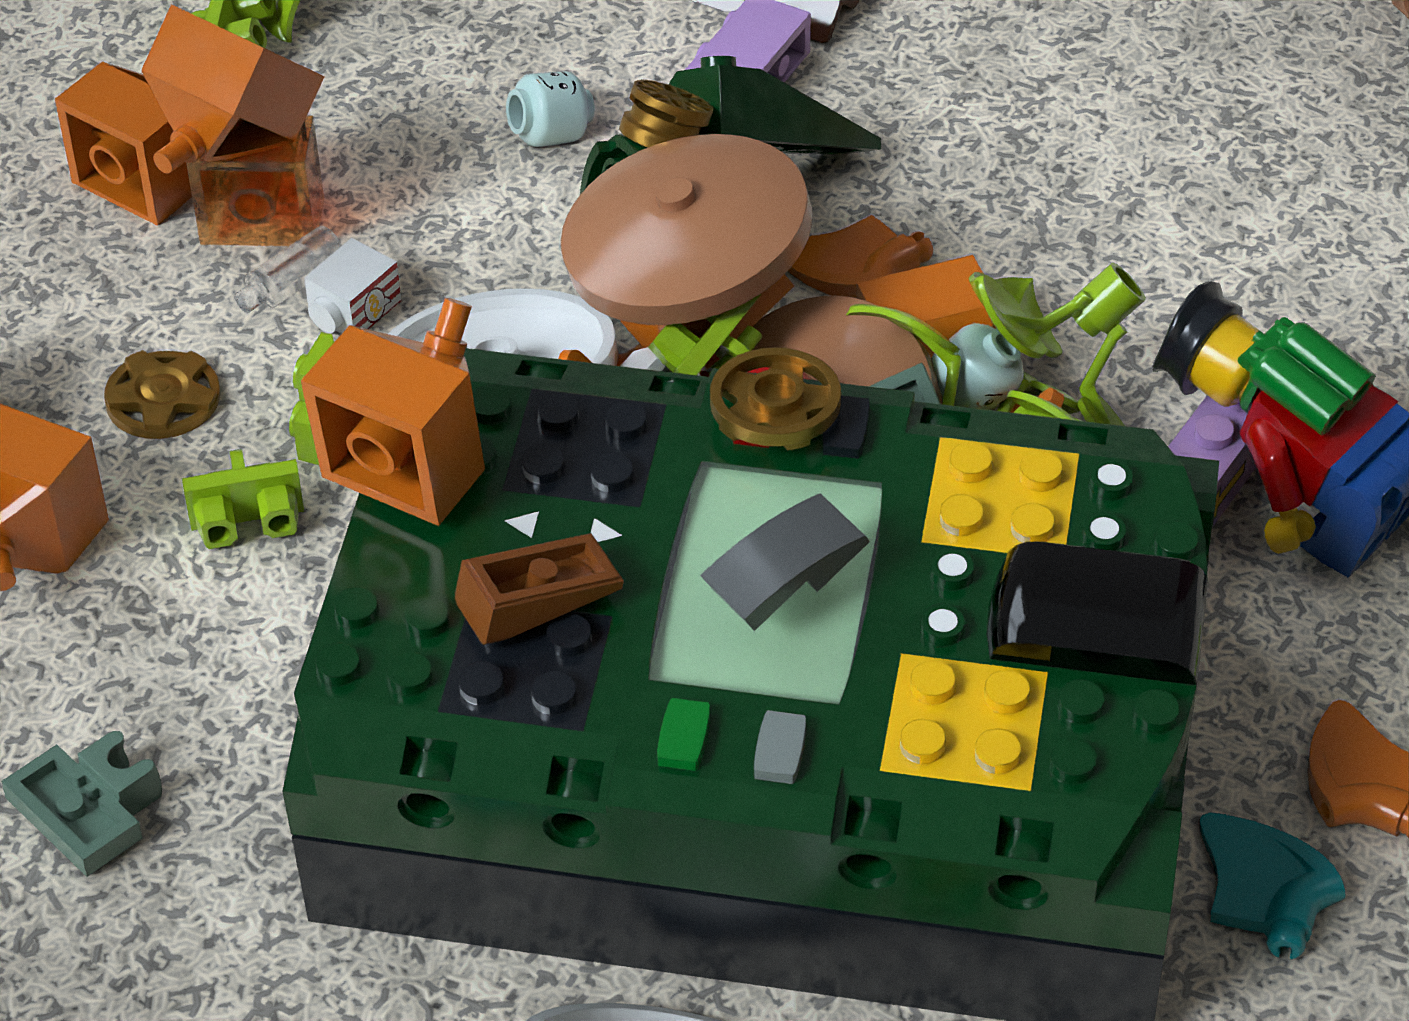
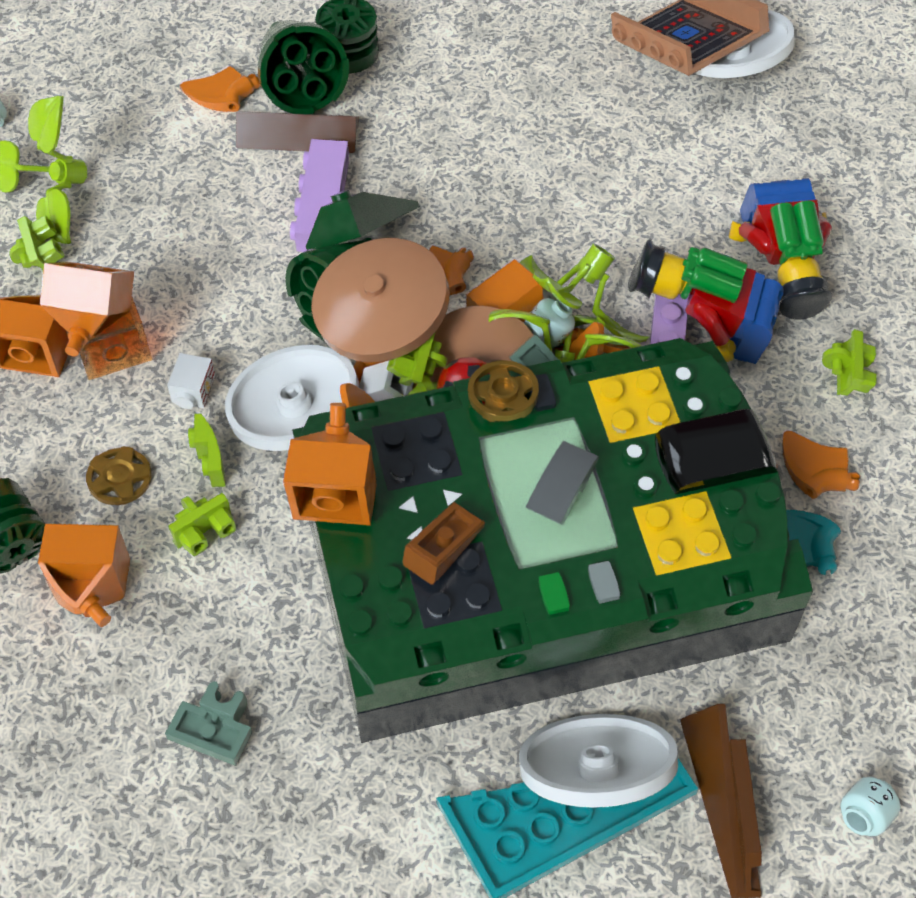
camera: 25 degrees left, 10 degrees up
(285, 272) = (149, 380): clear cylinder -> none
(549, 108) = (237, 239): light aqua head -> none
(663, 113) = (329, 236): pearl gold wheel -> none

